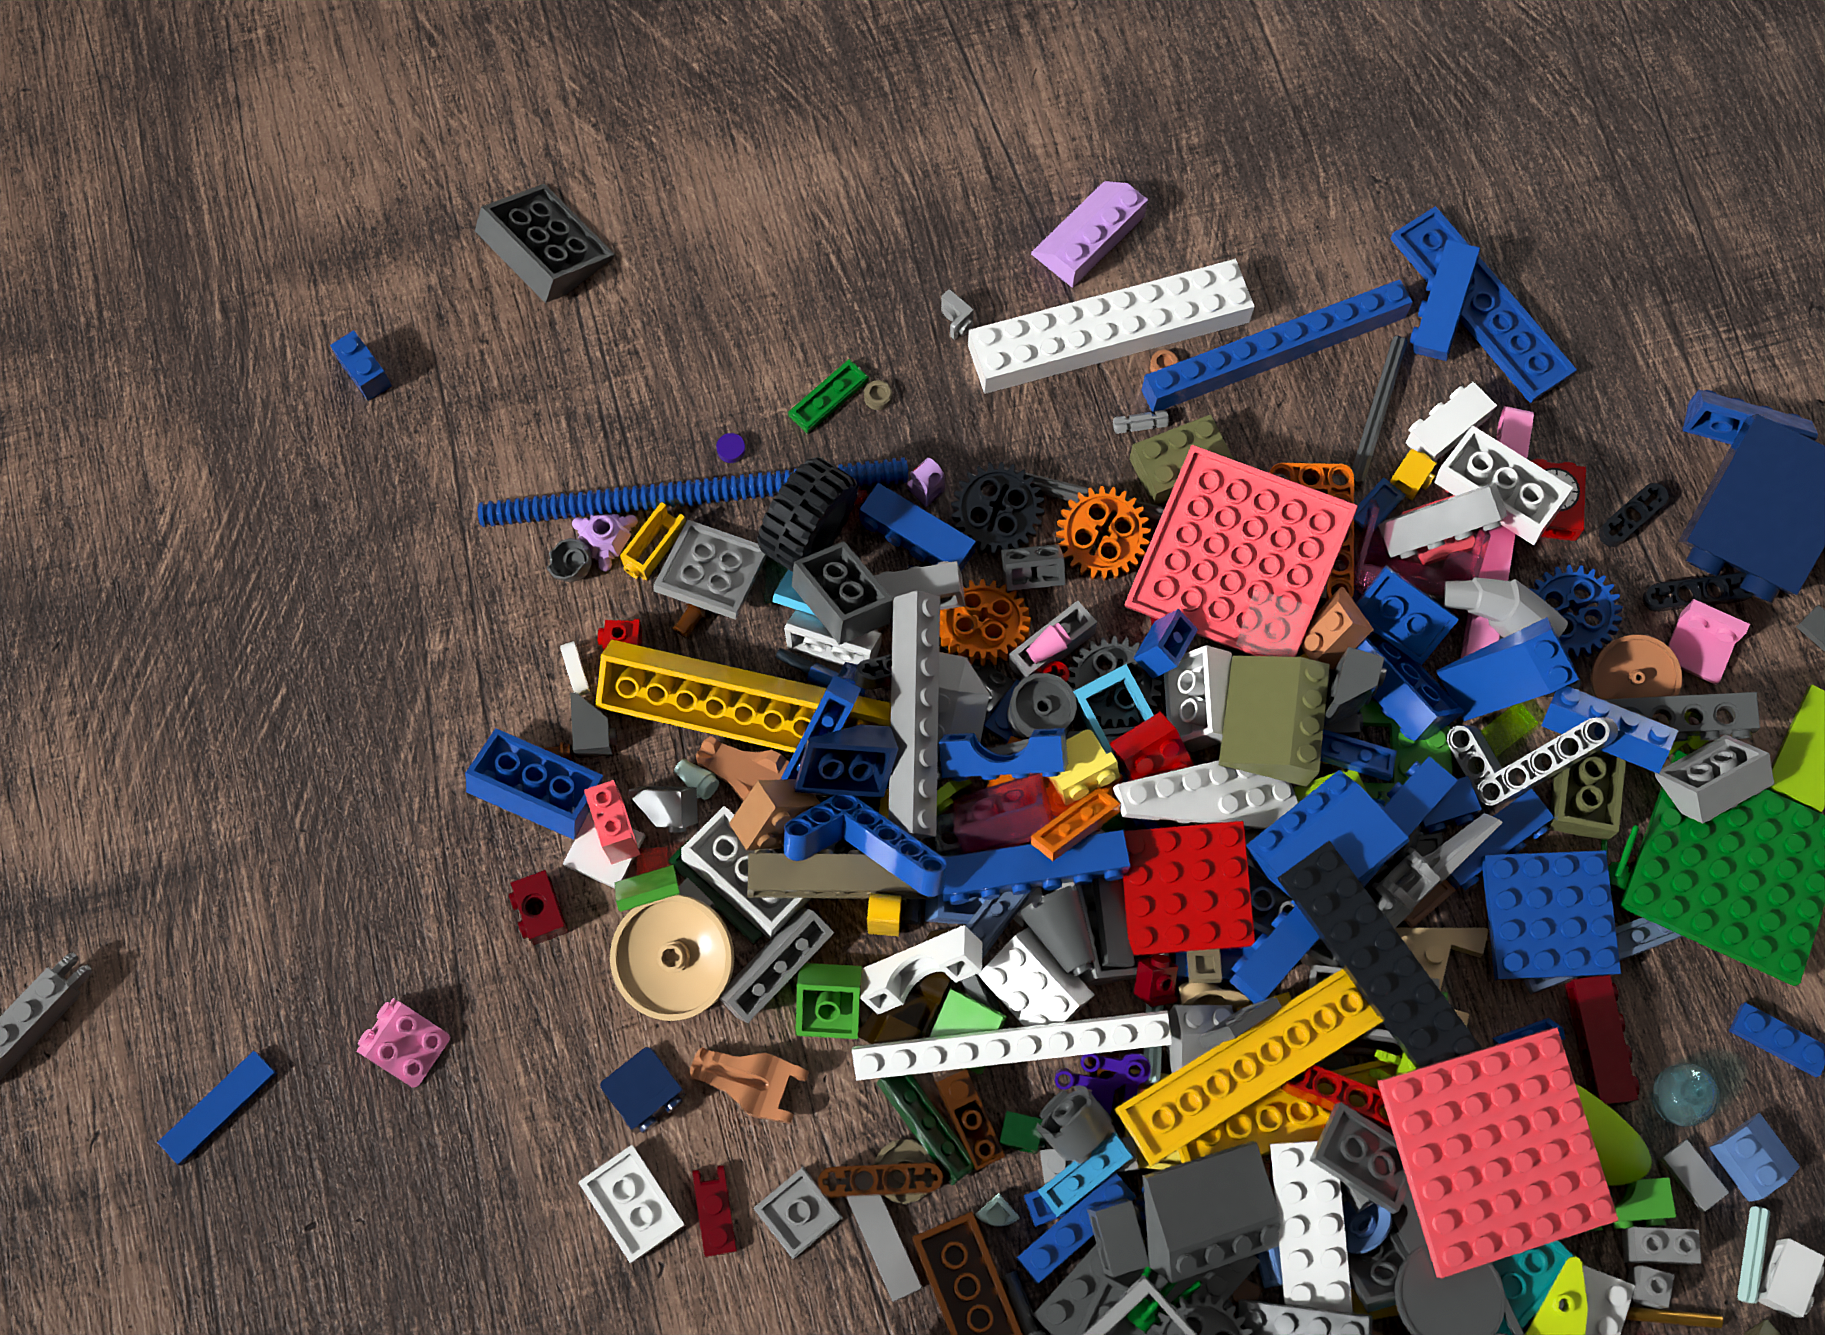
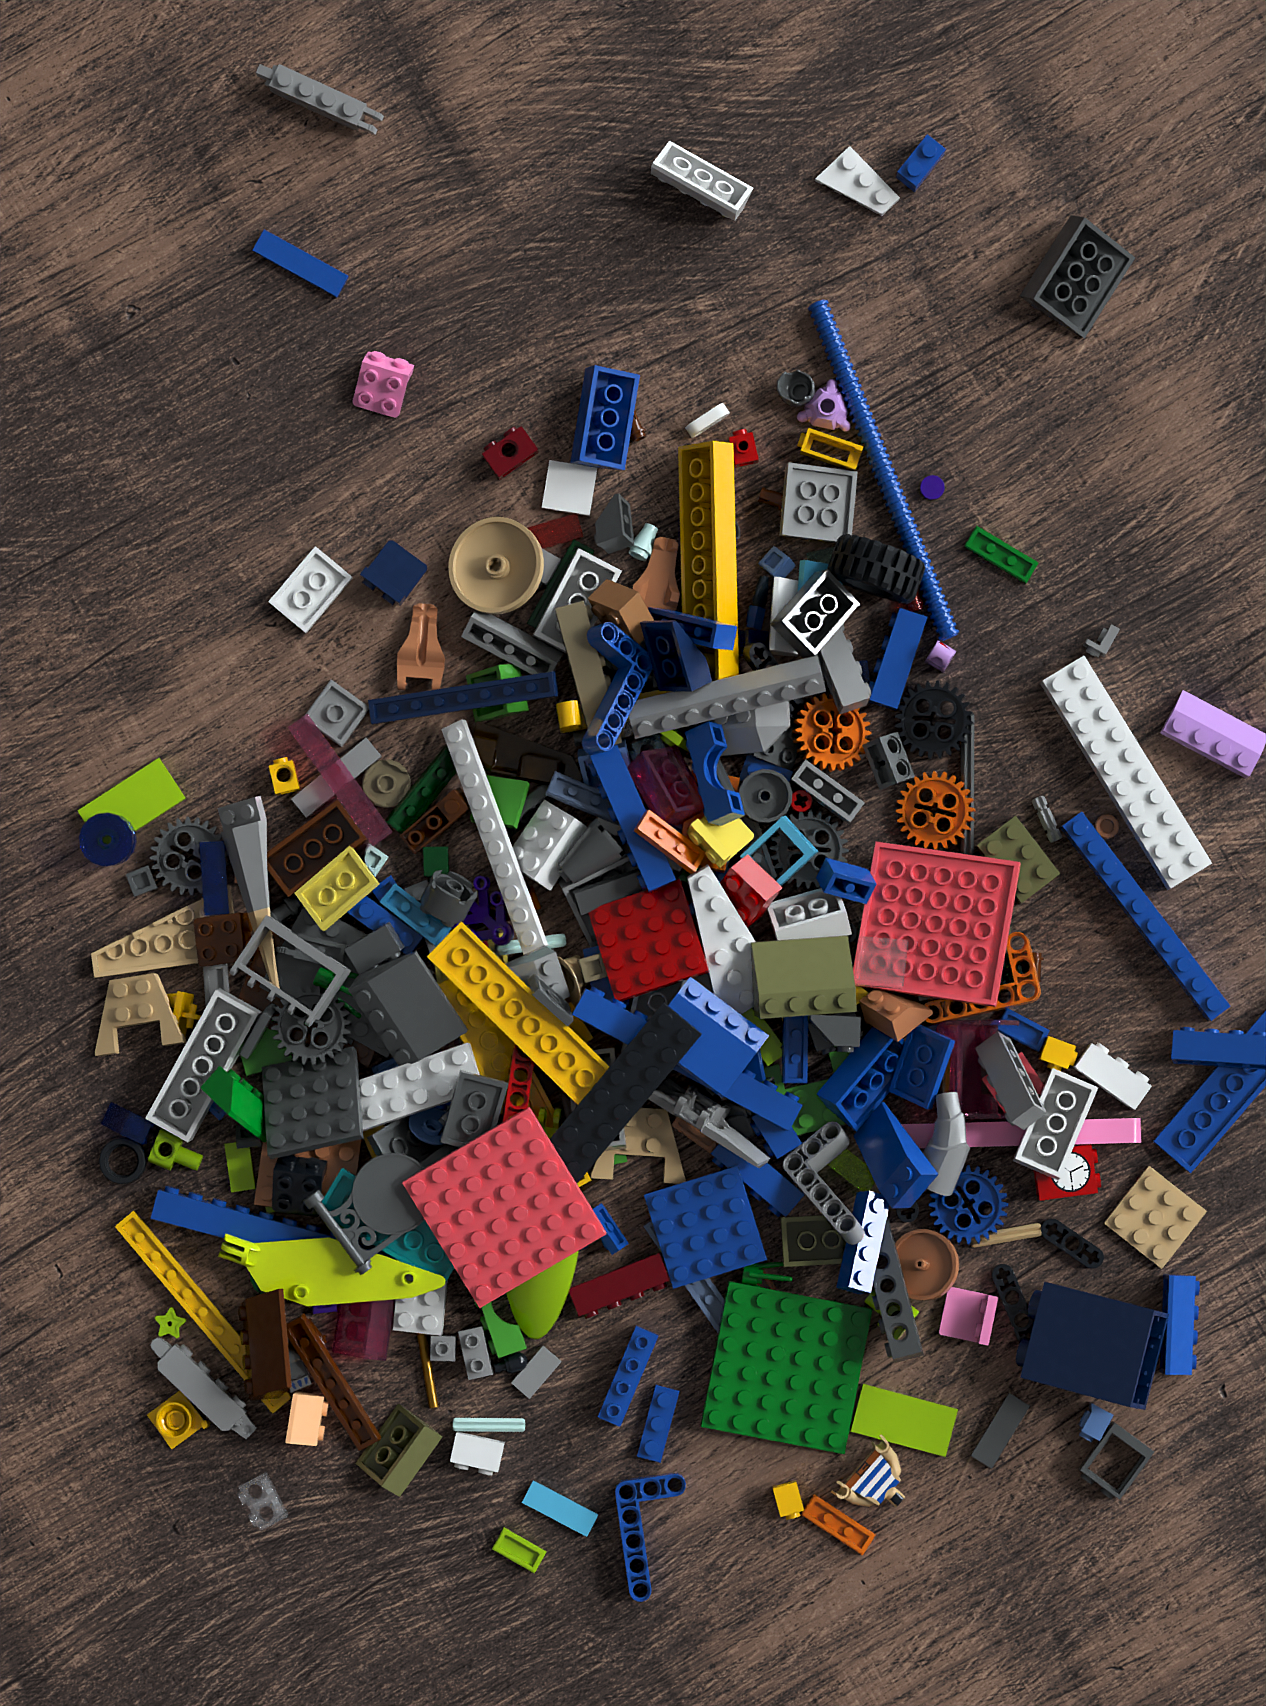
camera: 75 degrees right, 15 degrees up
(293, 601) = (701, 180): none -> white slope
(354, 440) = (859, 182): none -> white wing
(590, 730) = (660, 448): dark grey slope -> none
(612, 822) = (580, 495): coral window -> none
(646, 888) = (542, 530): bright green tile -> none
(714, 1214) = (319, 652): dark red hinge -> none
(766, 636) = (776, 563): none -> medium blue slope
(825, 1040) = (463, 698): none -> dark blue plate
(875, 1309) = (289, 786): none -> yellow brick
(877, 395) = (1013, 595): dark tan tile -> none
(880, 1186) = (371, 767): reddish brown beam -> none
(885, 1228) = (340, 780): none -> clear pink plate
(891, 979) = (521, 734): white arch -> none
(1029, 1267) = (336, 888): none -> light yellow plate
(1049, 643) = (819, 788): bright pink cone -> none
(1156, 980) = (574, 936): dark red brick -> none
(1378, 409) = (1111, 1014): dark grey axle -> none
(1612, 568) = (1010, 1234): none -> tan axle
(1617, 422) = (1155, 1217): none -> tan plate
(1683, 1204) = (511, 1363): none -> black cylinder
(1685, 1094) = (600, 1344): clear light blue cylinder -> none
(1716, 777) = (850, 1337): light grey slope -> none
(1726, 1062) = (628, 1375): none -> blue brick
(1755, 1158) = (562, 1416): medium blue slope -> none

